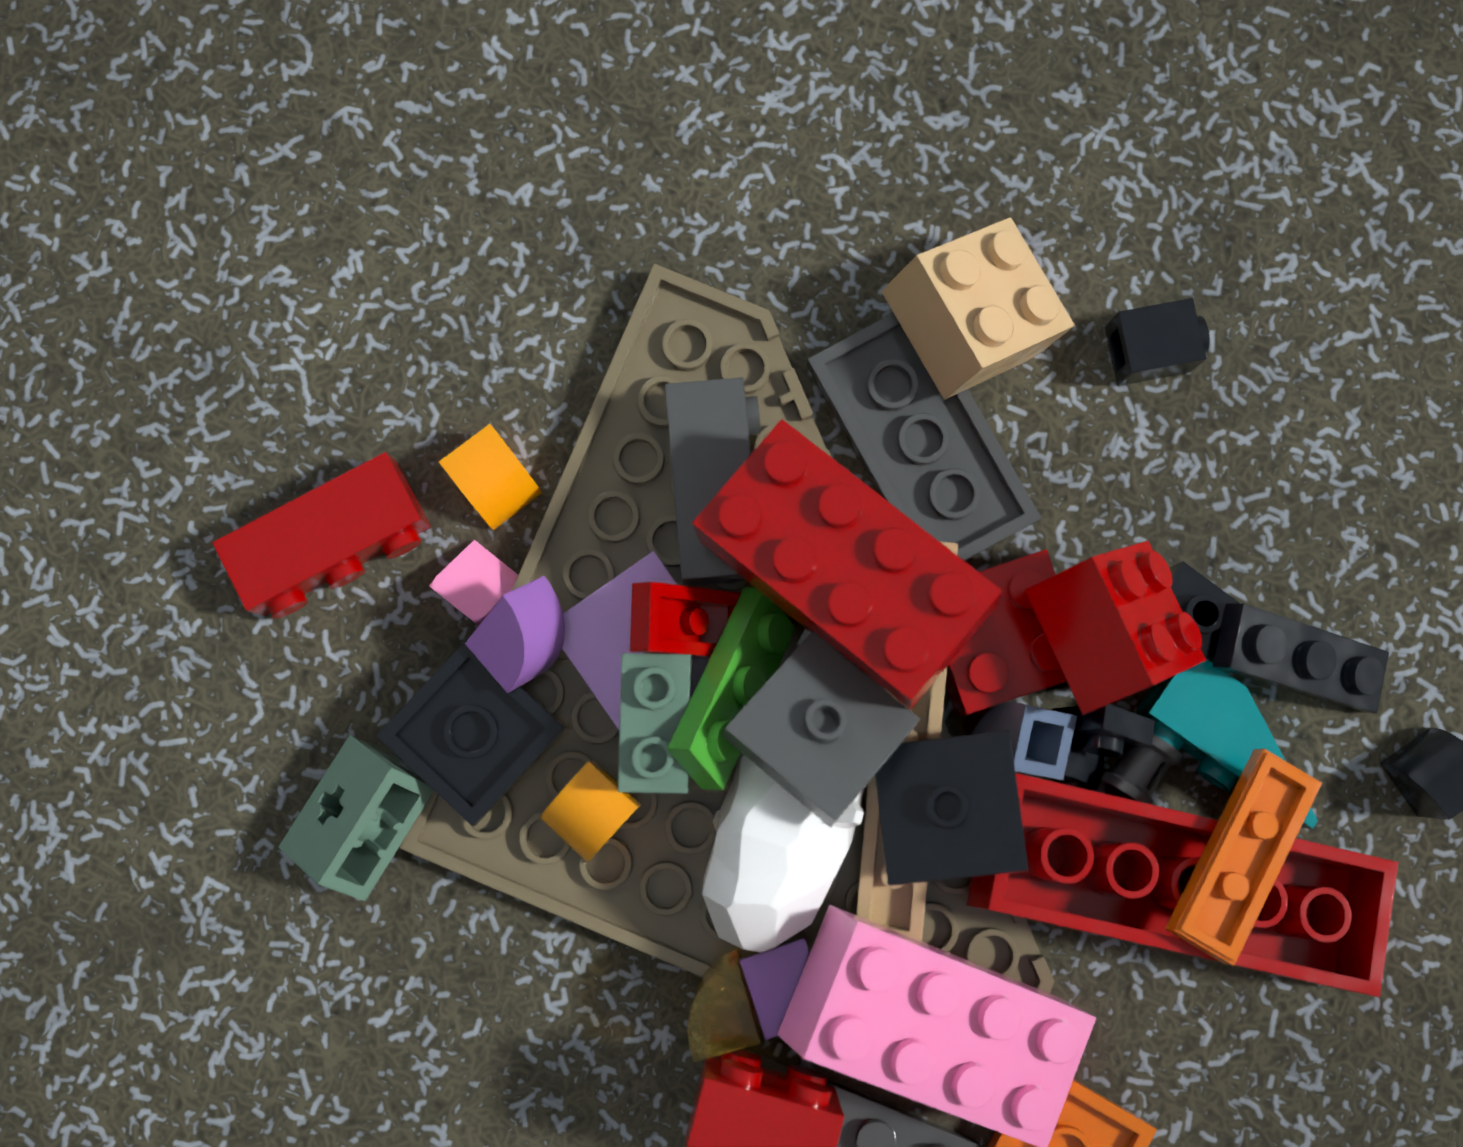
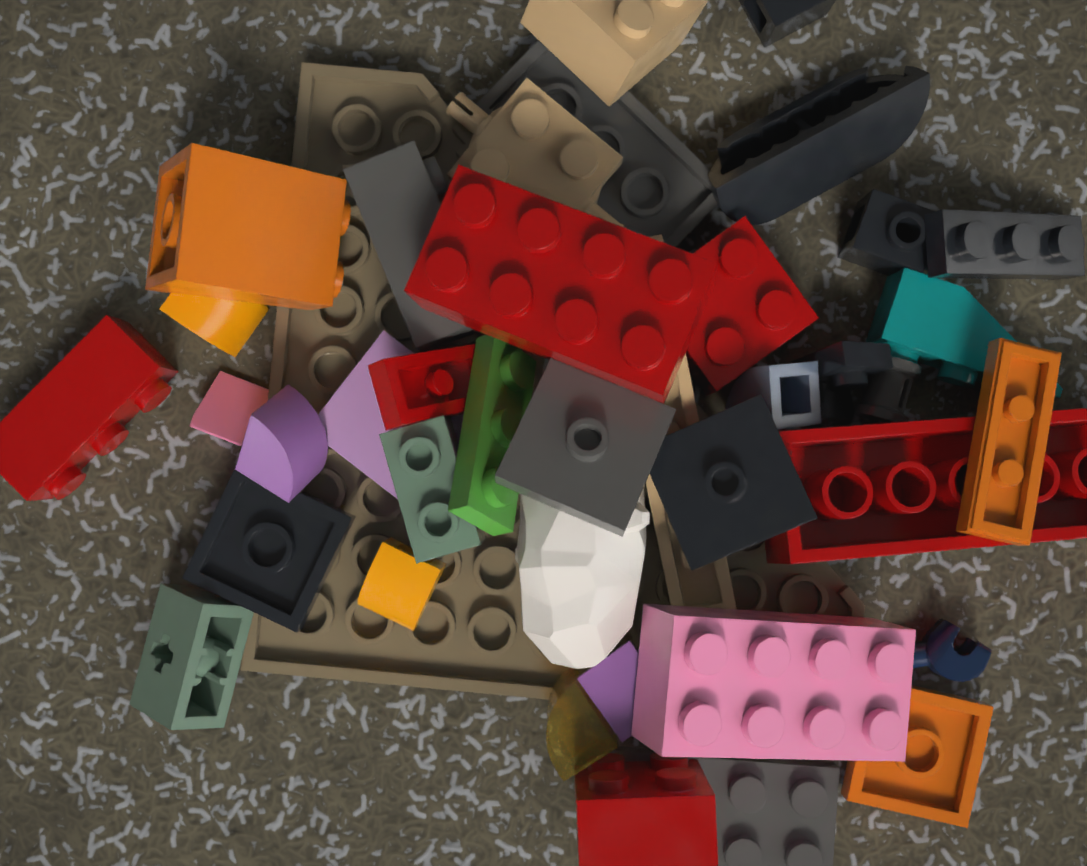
camera: 15 degrees left, 5 degrees up
(550, 414) = (247, 230): none -> orange slope
(859, 422) = (537, 148): none -> tan plate
(1116, 625) = (830, 265): red brick -> none
(1117, 1063) = (939, 656): none -> dark blue piece
(1140, 496) = (816, 143): none -> black brick

